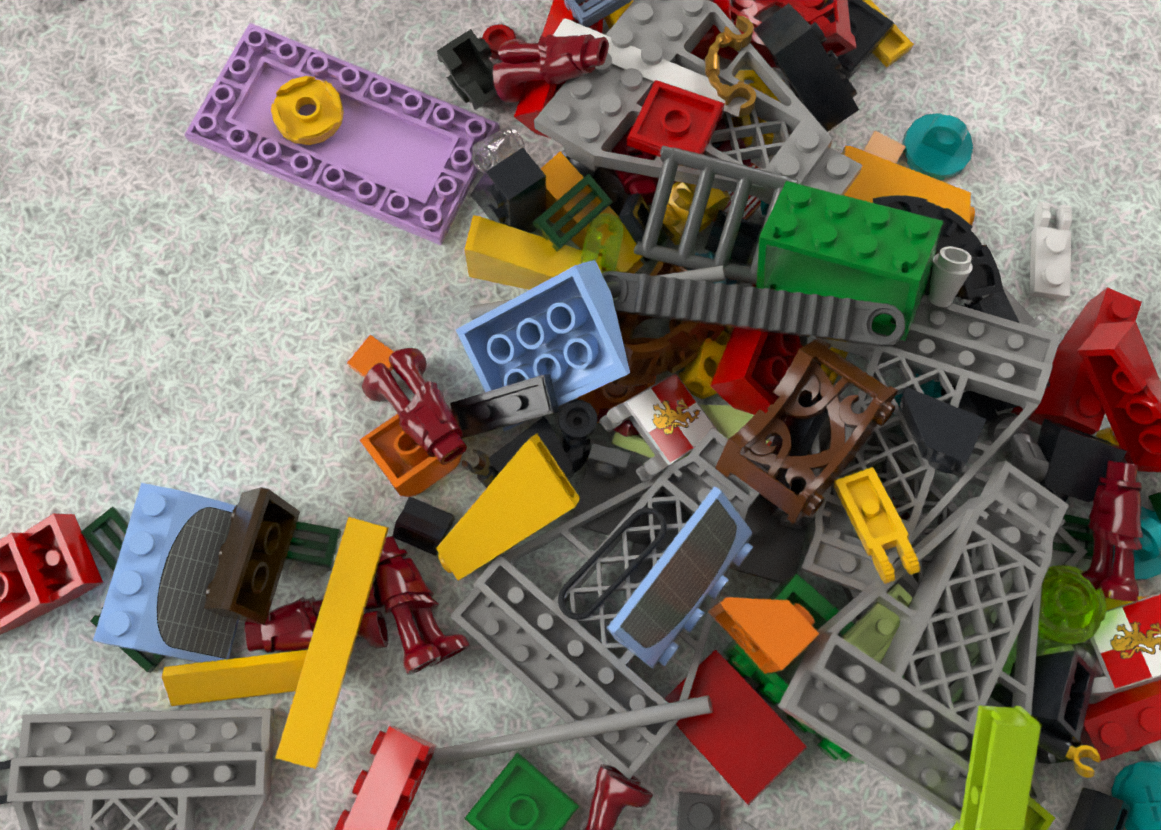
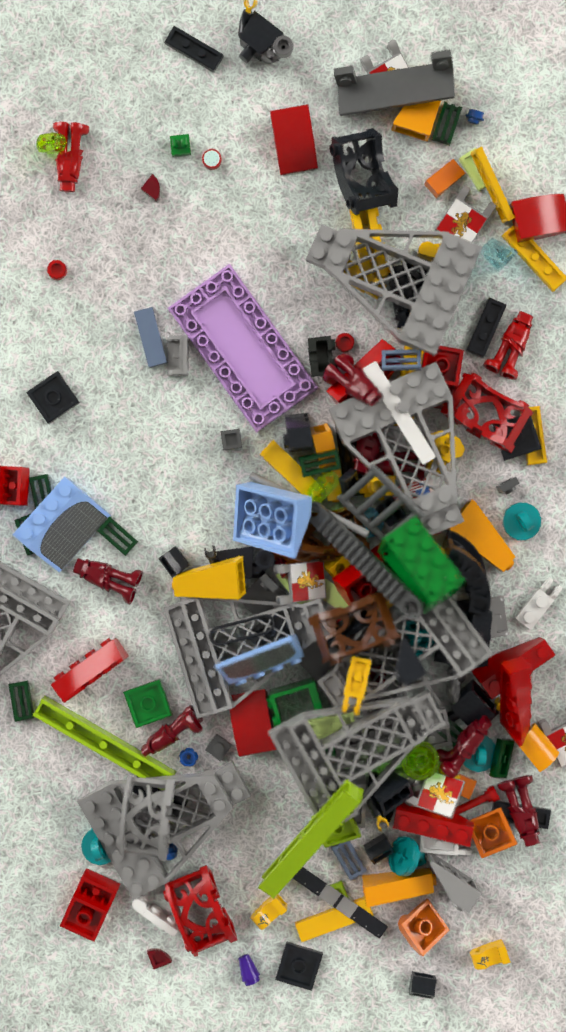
camera: 40 degrees right, 15 degrees up
(58, 374) = (53, 397): none -> black tile
(180, 193) = (150, 337): none -> sand blue tile
(233, 678) = (67, 583): yellow tile -> none
(240, 194) = (178, 355): none -> light grey hinge
(252, 557) = (93, 536): dark brown slope -> none
(310, 128) = (227, 319): yellow tile -> none
(332, 643) = (109, 591): yellow tile -> none
(368, 355) = (194, 472): orange tile -> none
(403, 460) = (188, 525): orange slope -> none
(405, 273) = (231, 439): none -> dark grey plate
(407, 595) = (150, 589): dark red piece -> none
(427, 415) = (200, 518): dark red piece -> none
(496, 148) = (308, 404): clear brick -> none
(505, 406) = (237, 532): black tile -> none
(574, 730) = (185, 686): light grey piece -> none
(675, 120) = (390, 451): red tile -> none
(712, 65) = (426, 432): pearl gold piece -> none
(766, 629) = (283, 699): orange slope -> none
(808, 67) = (477, 451): black wedge -> none
(883, 104) = (508, 486): none -> dark grey plate
(884, 147) = (492, 508): light nougat tile -> none
(948, 274) = (463, 597): white cone -> none

